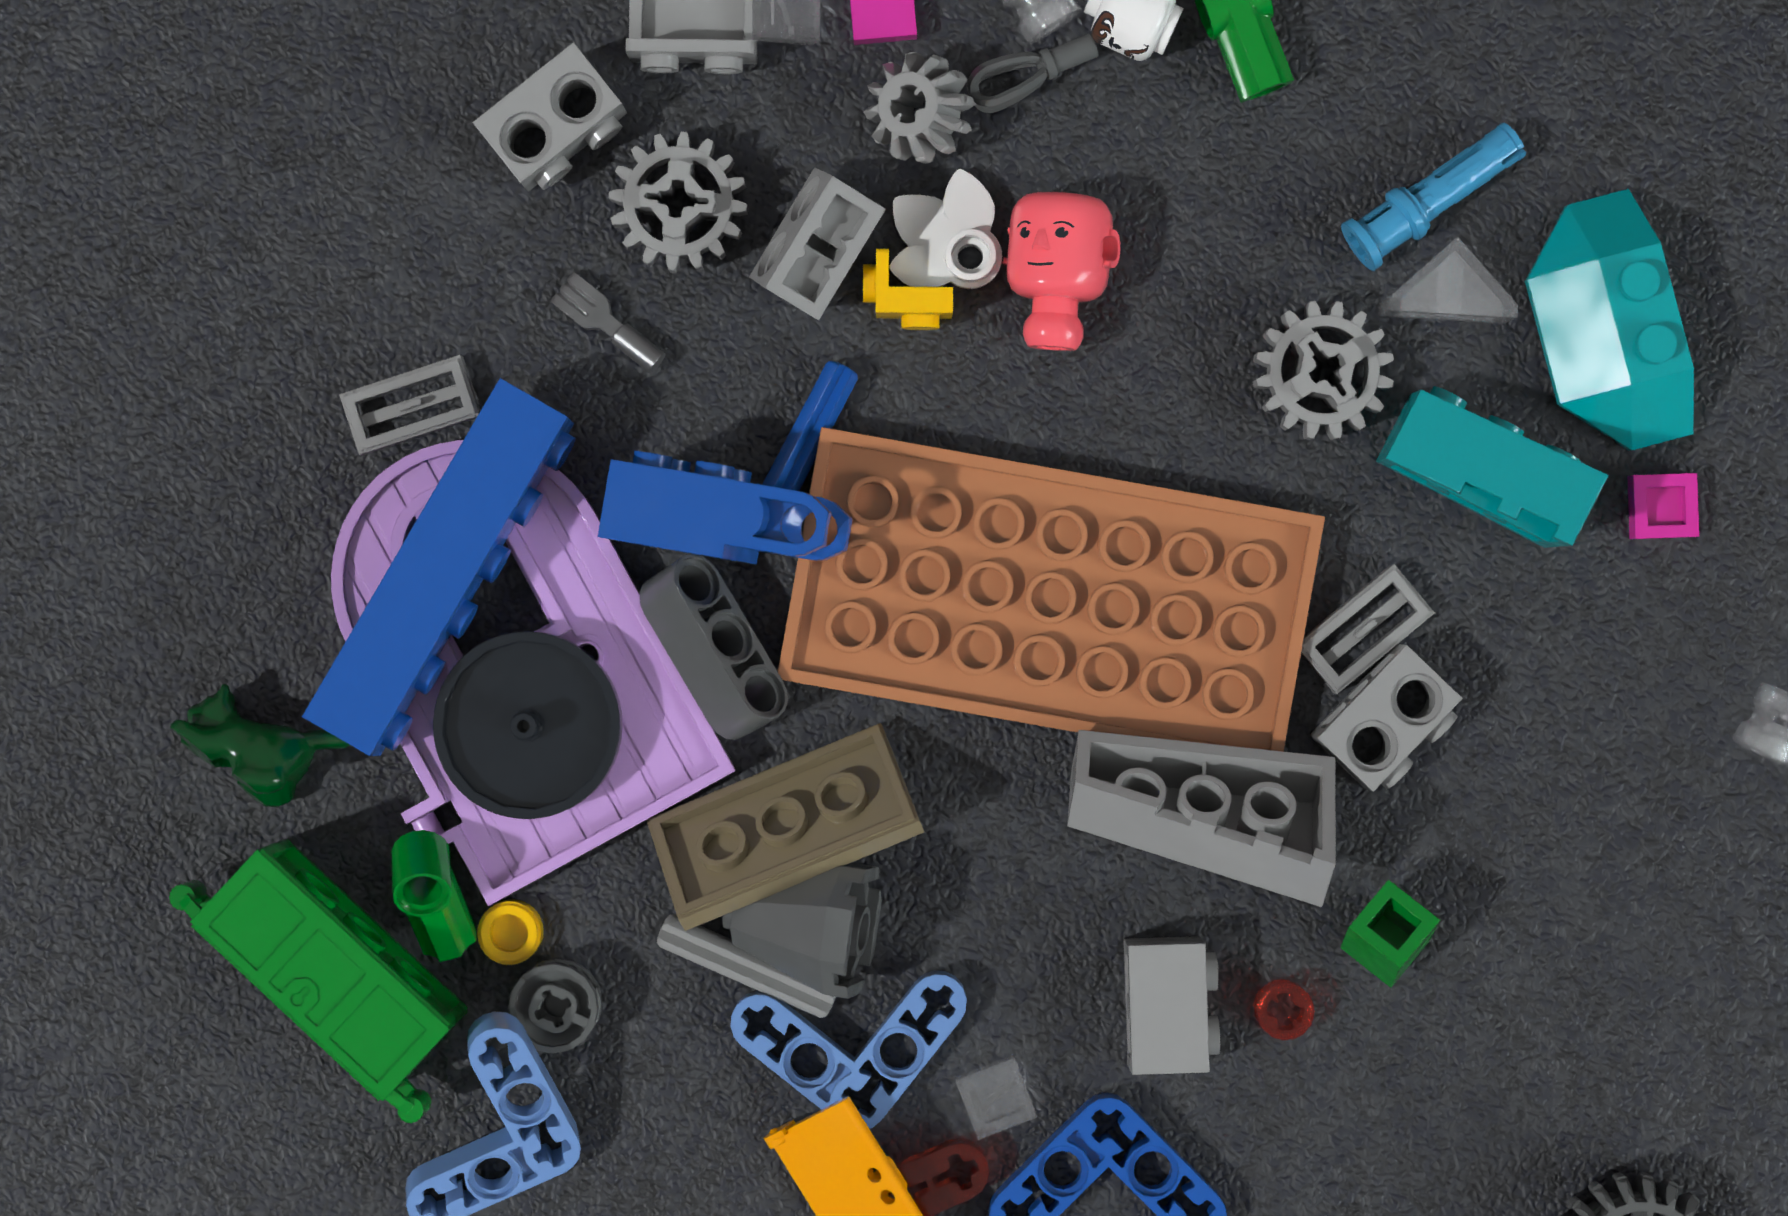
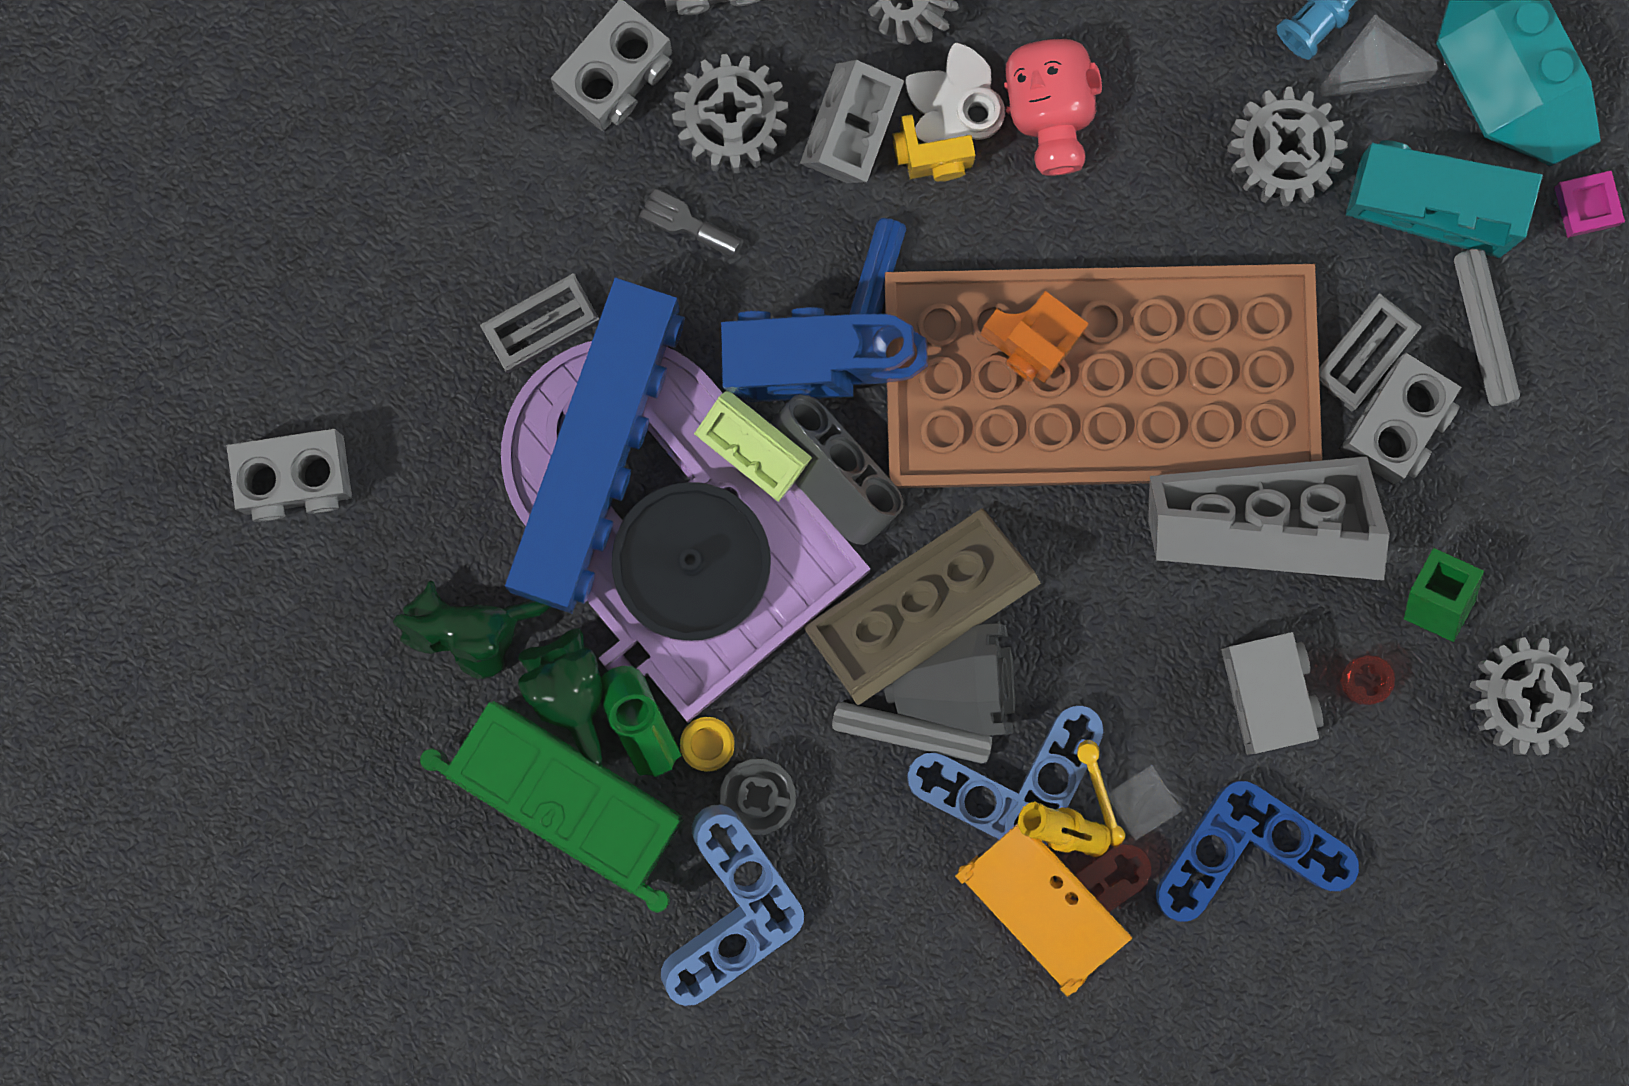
camera: 10 degrees left, 5 degrees down
(86, 517) = (289, 459): none -> light grey brick
(351, 843) = (565, 688): none -> dark green animal
(624, 604) = (752, 445): none -> yellowish green plate
(894, 1117) = (1047, 825): none -> yellow pin
(942, 1034) = (1088, 753): none -> yellow hinge
(979, 544) = (1036, 337): none -> orange brick
(1476, 1044) = (1525, 717): none -> light grey gear
(1510, 627) = (1486, 327): none -> light grey axle

